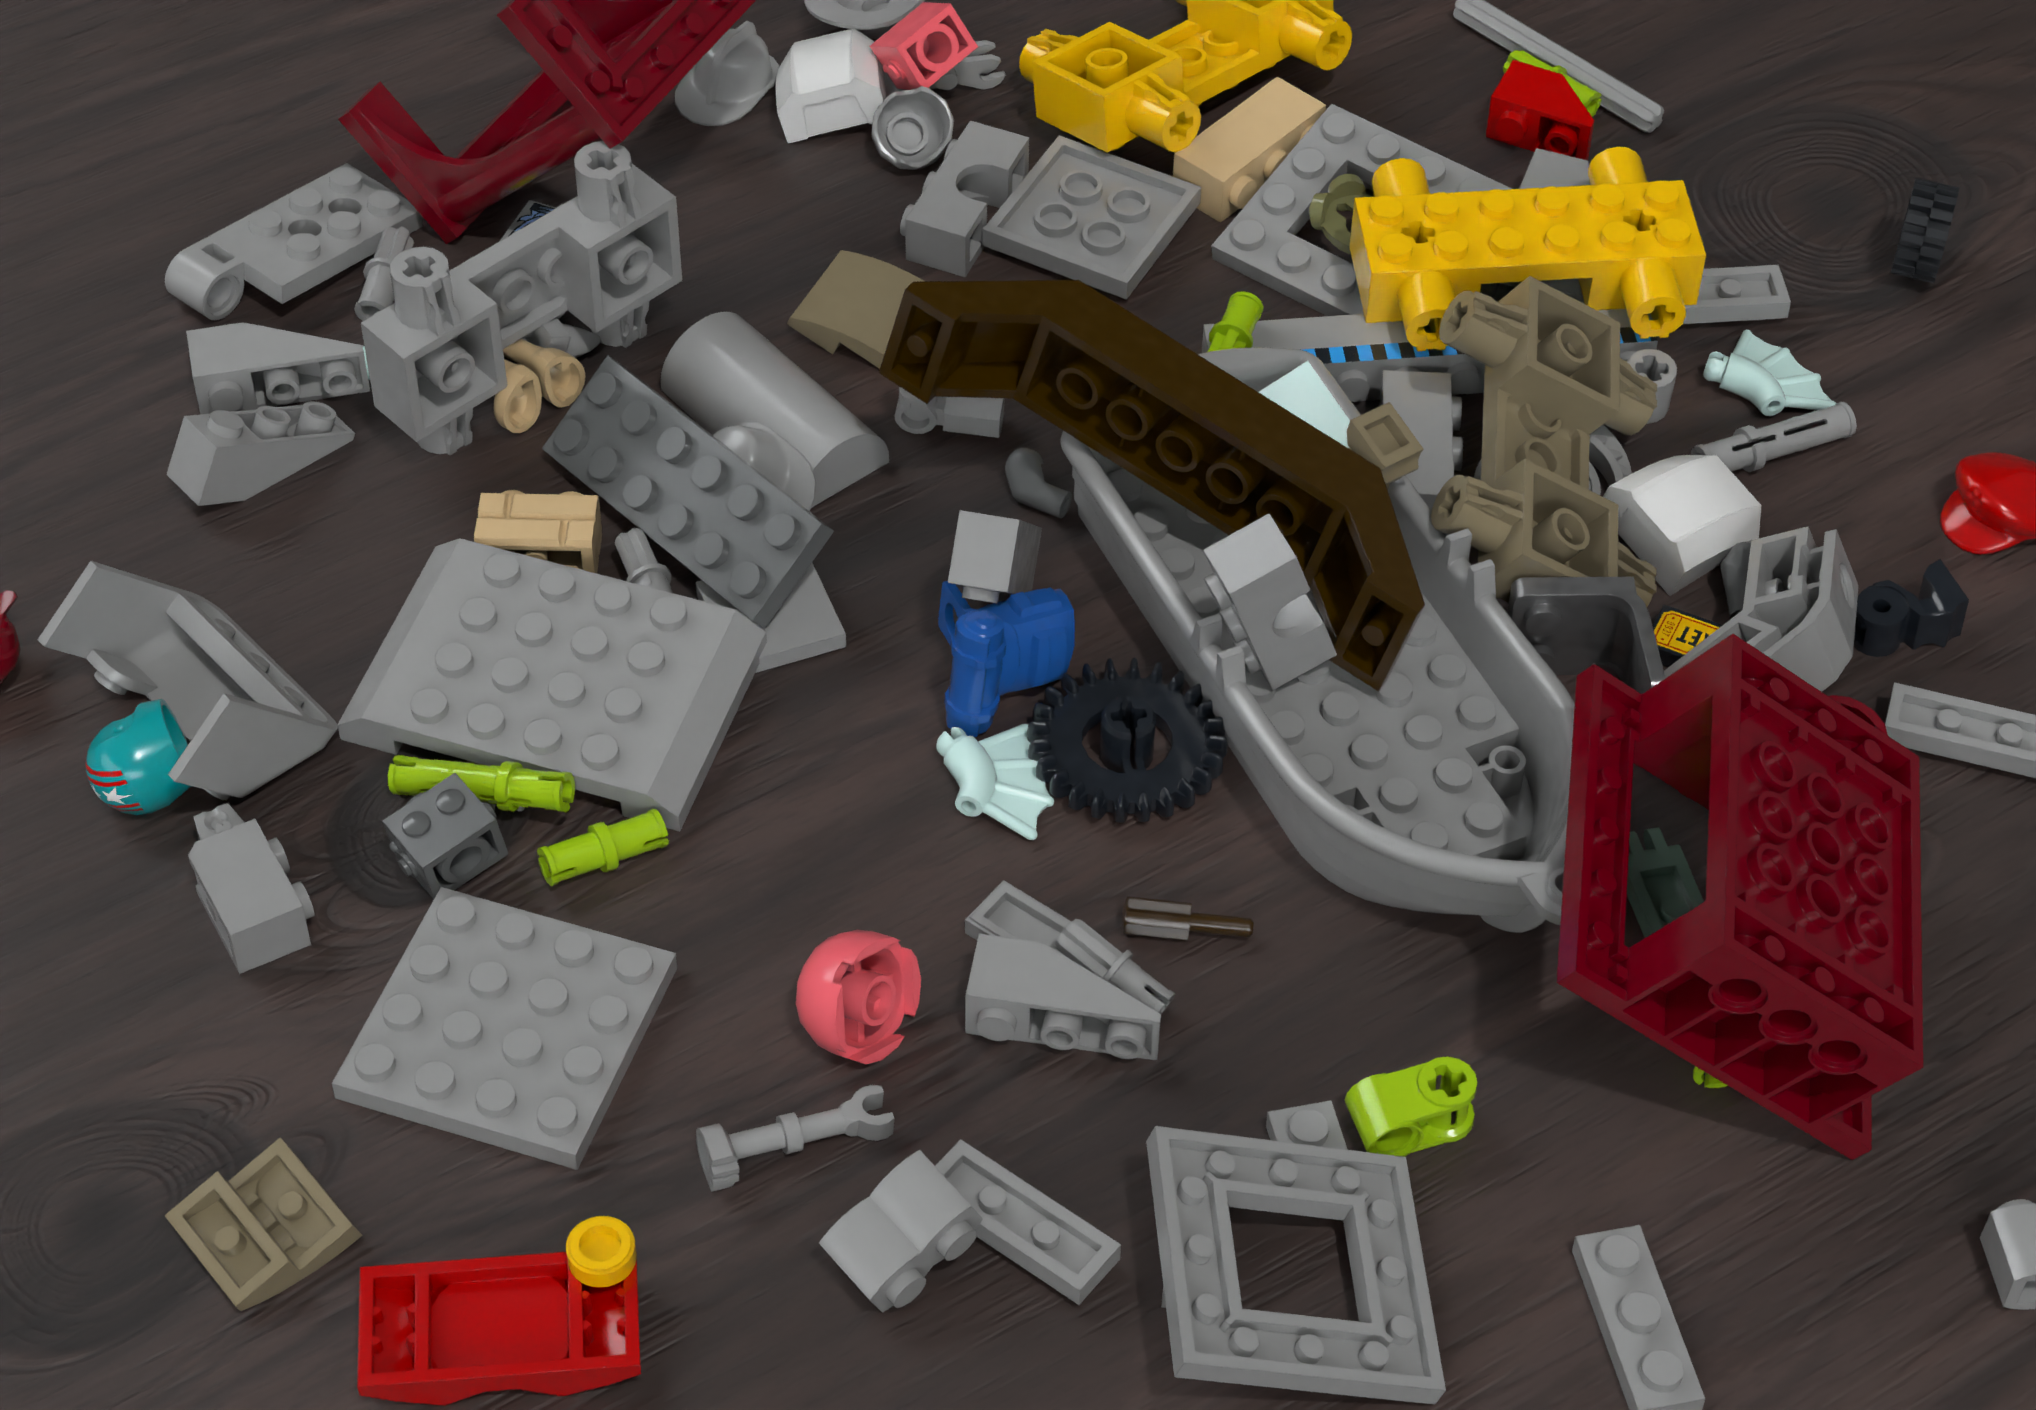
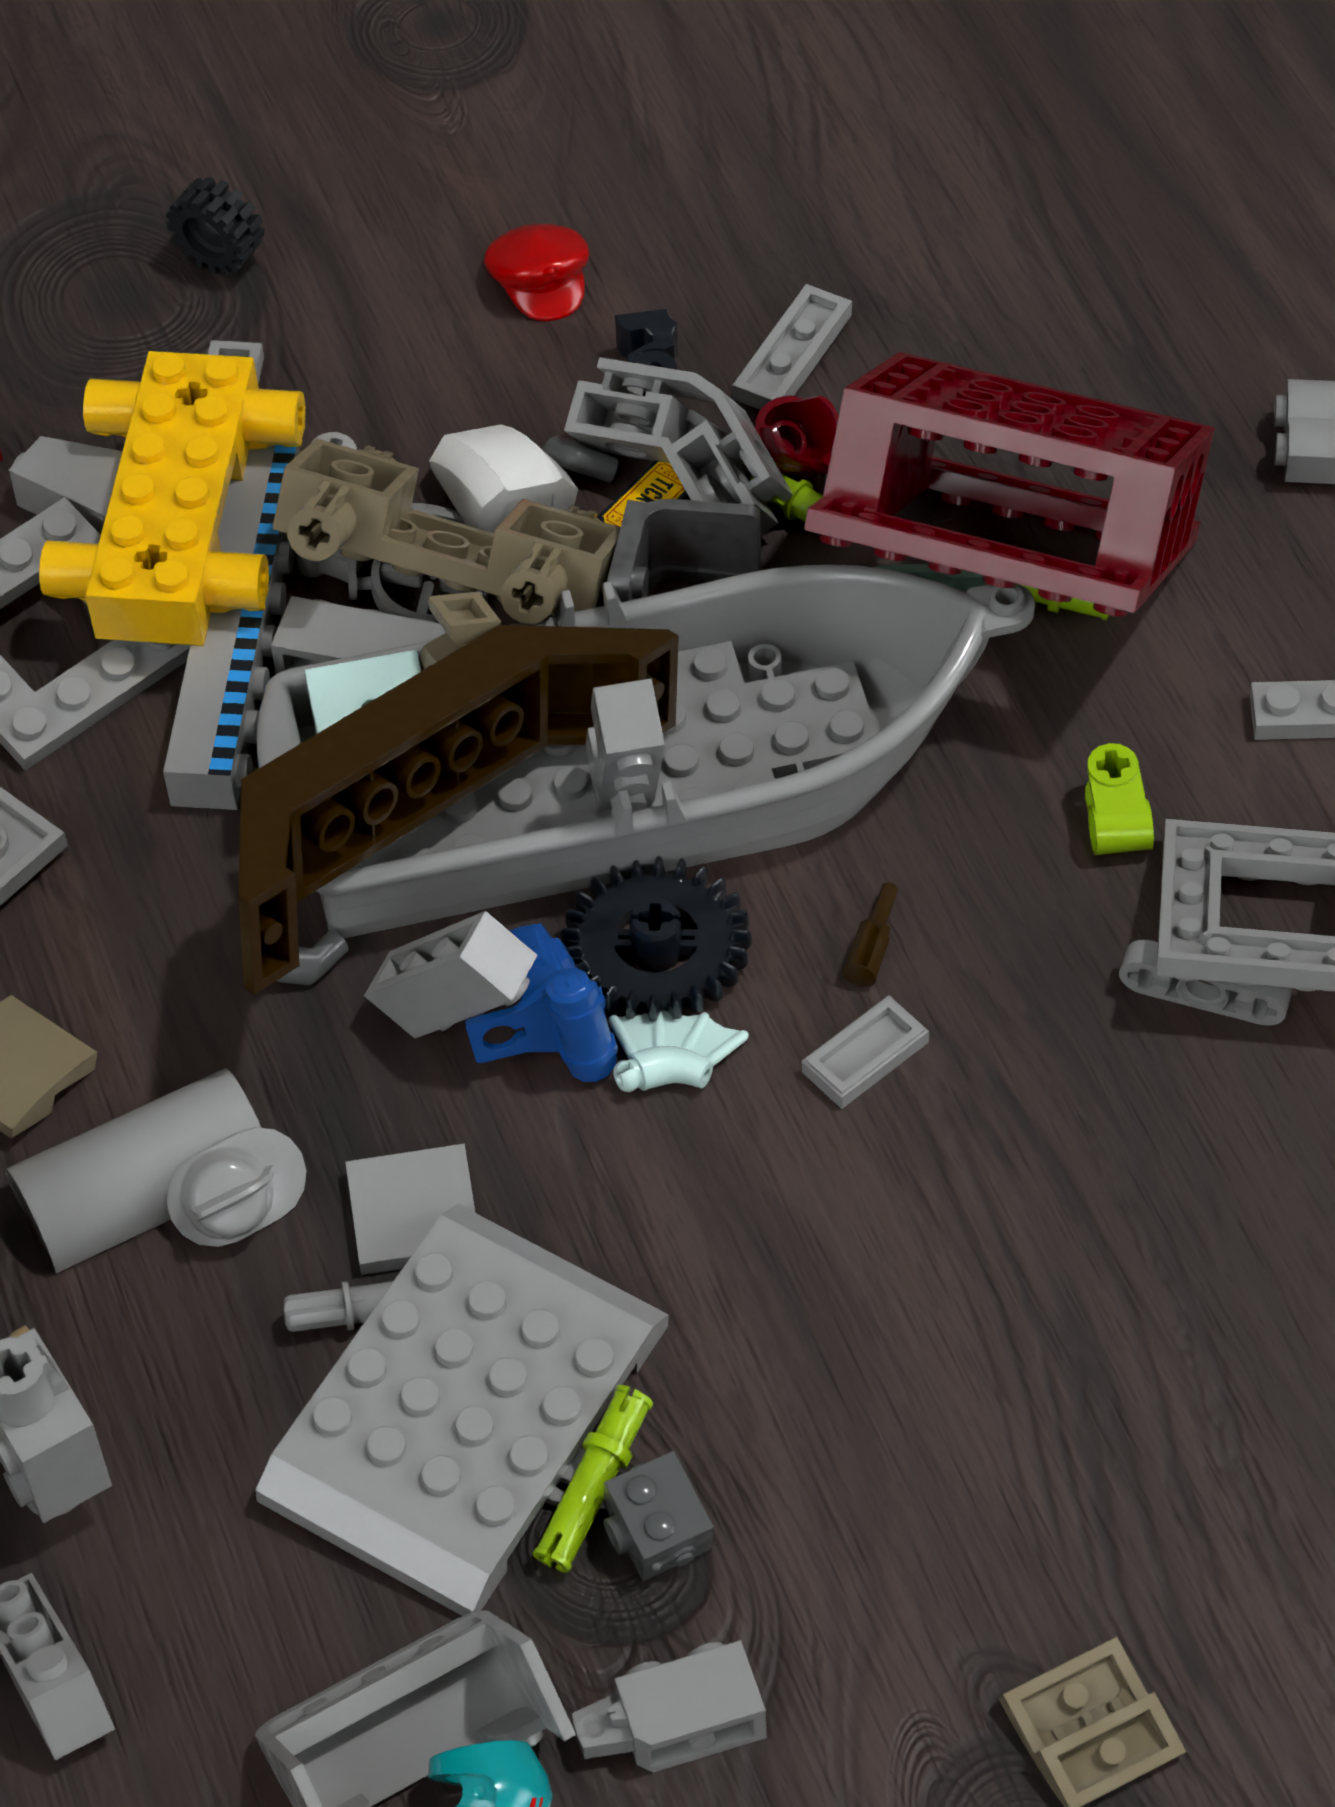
camera: 75 degrees left, 5 degrees up
(492, 1326) = (1242, 1521): red slope -> none
(506, 1027) = (886, 1495): light grey plate -> none
(543, 526) = (258, 1394): tan brick -> none
(601, 1251) = (1192, 1419): yellow tile -> none
(602, 847) = (691, 1384): lime pin -> none
(688, 491) = (256, 1242): dark grey plate -> none
(721, 1150) = (1073, 1326): light grey piece -> none
(857, 994) = (926, 1189): coral cylinder -> none
(902, 1232) = (1199, 1185): light grey brick -> none
(955, 414) = (181, 1011): light grey bar -> none
(1030, 1225) = (1184, 1106): light grey plate -> none
(1045, 998) = (947, 1045): light grey slope -> none
(1100, 957) = (933, 987): light grey axle -> none
(1237, 323) = (204, 744): lime axle -> none
(1306, 1124) = (1124, 890): light grey plate -> none
(1339, 197) = (29, 620): olive piece -> none
(1752, 447) = (424, 414): light grey pin -> none
(1766, 377) = (336, 387): light aqua arm -> none

